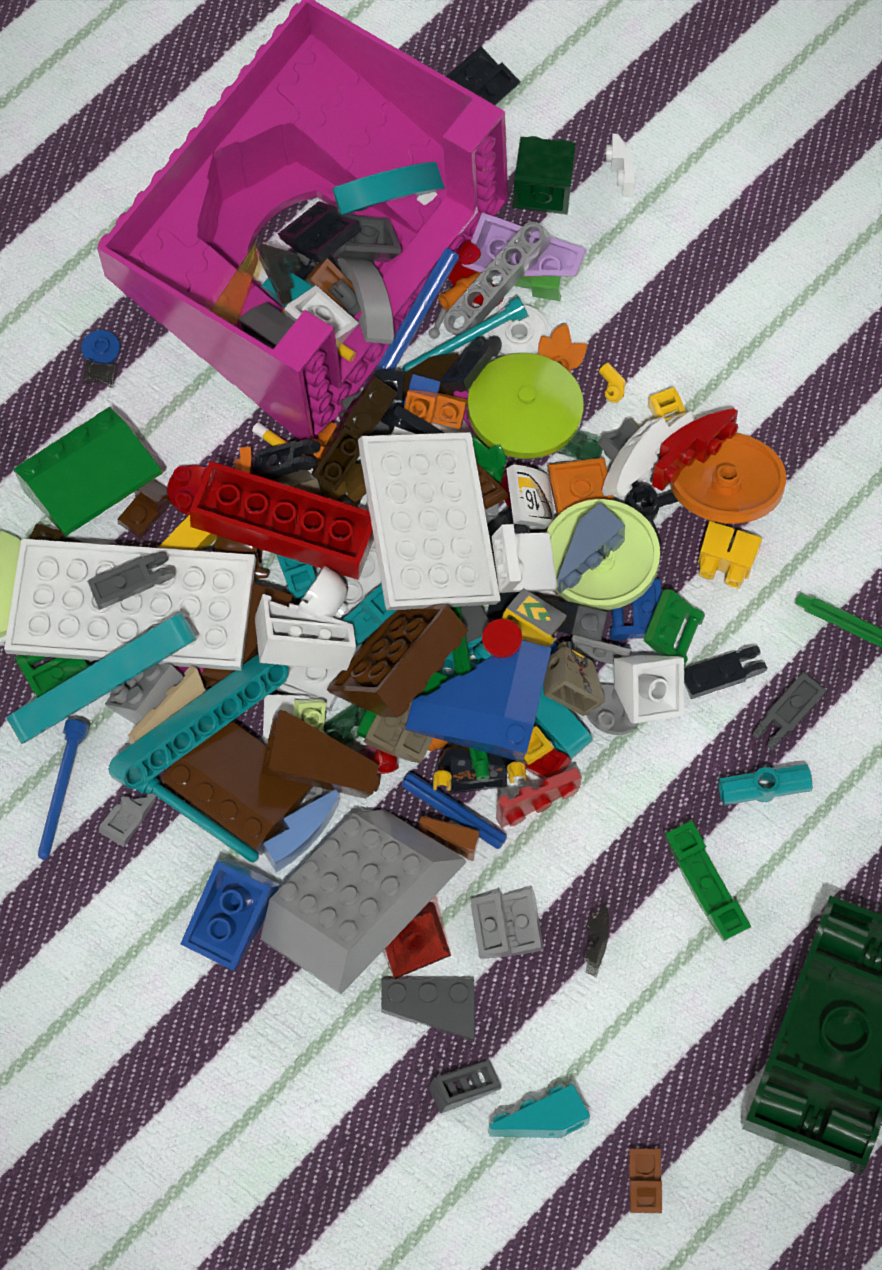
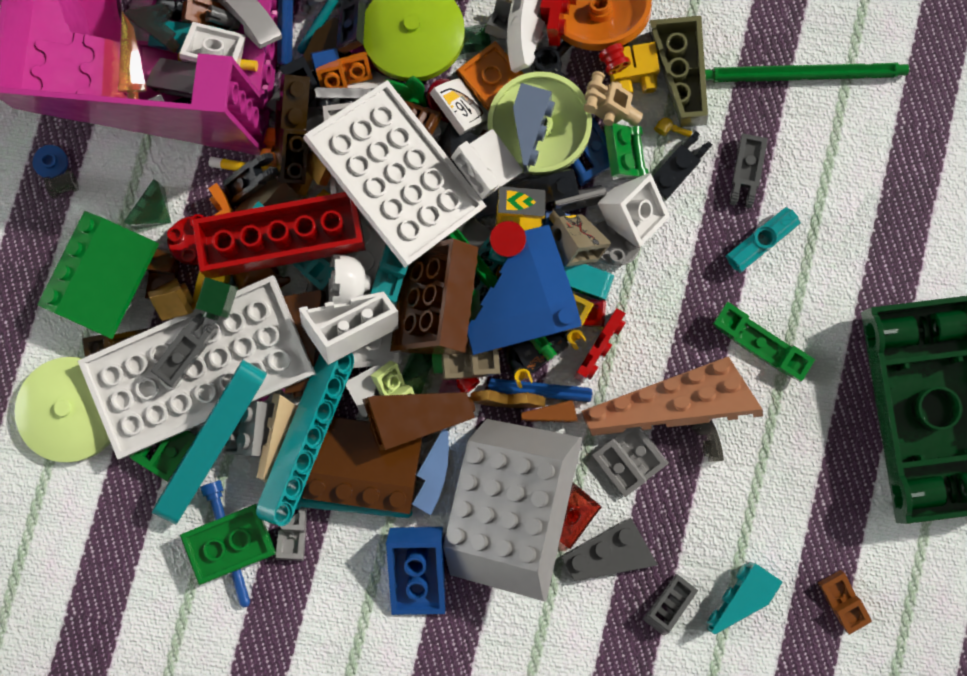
camera: 25 degrees left, 15 degrees up
(61, 787) = (227, 544): none -> green tile
(143, 530) = (171, 300): none -> pearl gold slope
(172, 439) = (150, 209): none -> clear green slope
(189, 546) = (216, 299): none -> dark green brick
(406, 795) = (499, 399): none -> pearl gold tile
(584, 889) = (681, 400): none -> nougat wing
(681, 569) = (610, 101): none -> tan piece
(709, 531) = (614, 59): none -> red wheel
(730, 625) = (666, 124): none -> yellow hand
(780, 574) = (683, 66): none -> olive wedge

